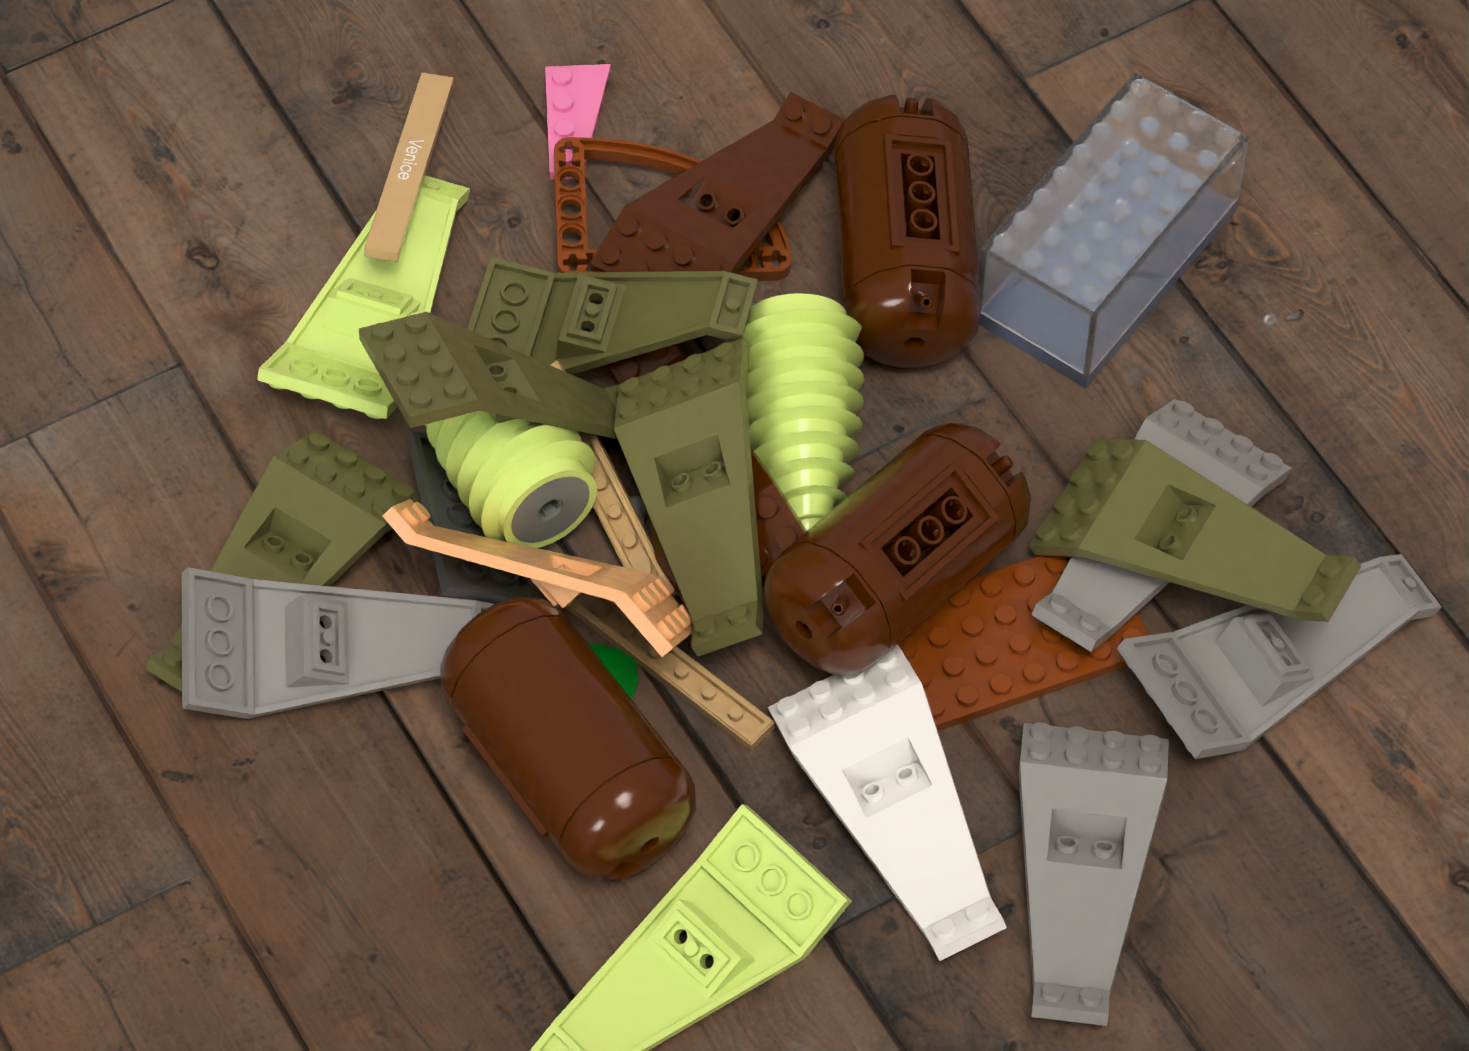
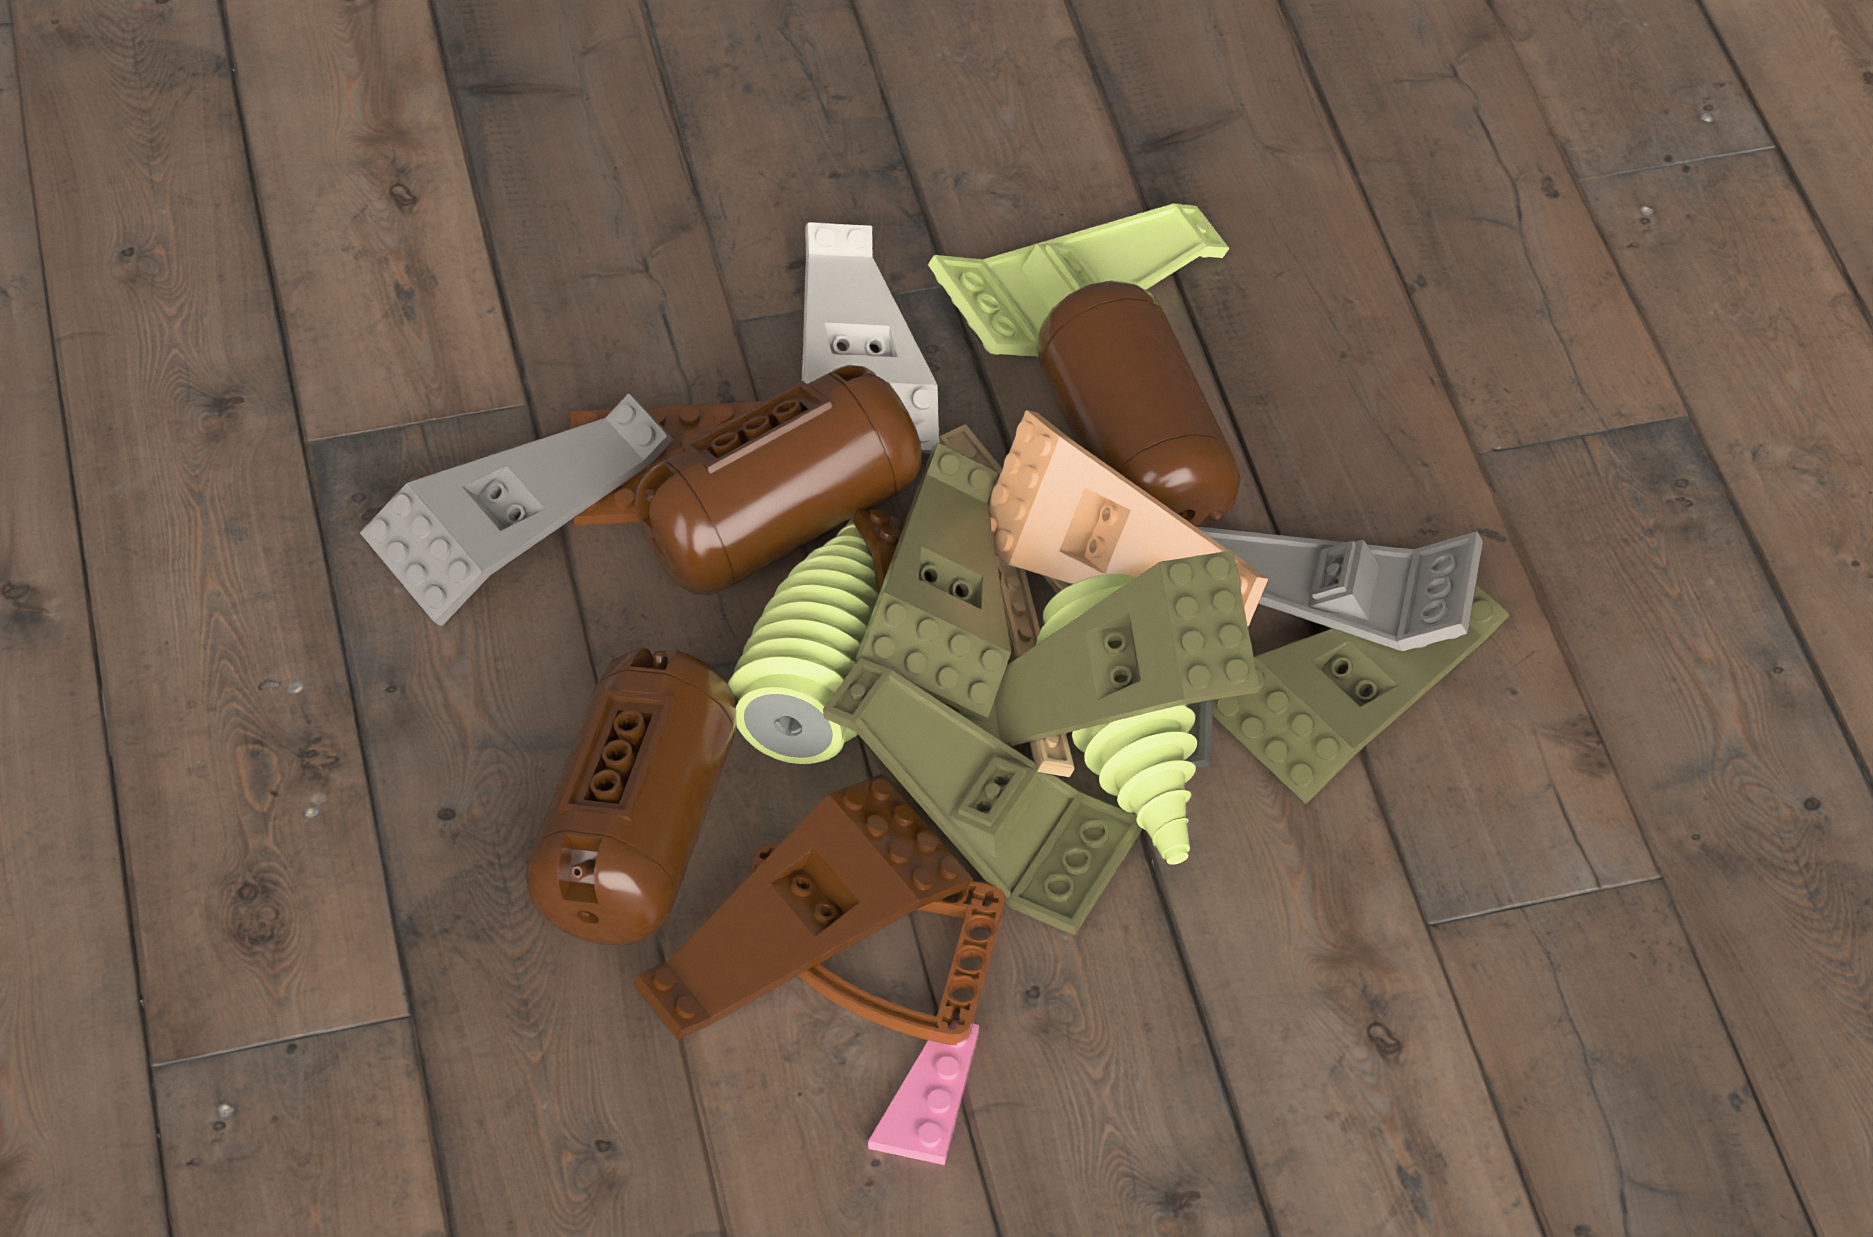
camera: 165 degrees left, 5 degrees down
(324, 350) = (1244, 857): yellowish green wing -> none
(409, 167) = (1135, 1047): tan tile -> none
(1086, 841) = (693, 317): light grey wing -> none
(1110, 229) = (419, 746): clear piece -> none
(1170, 523) = (546, 496): olive wing -> none
(1252, 668) = (494, 378): light grey wing -> none

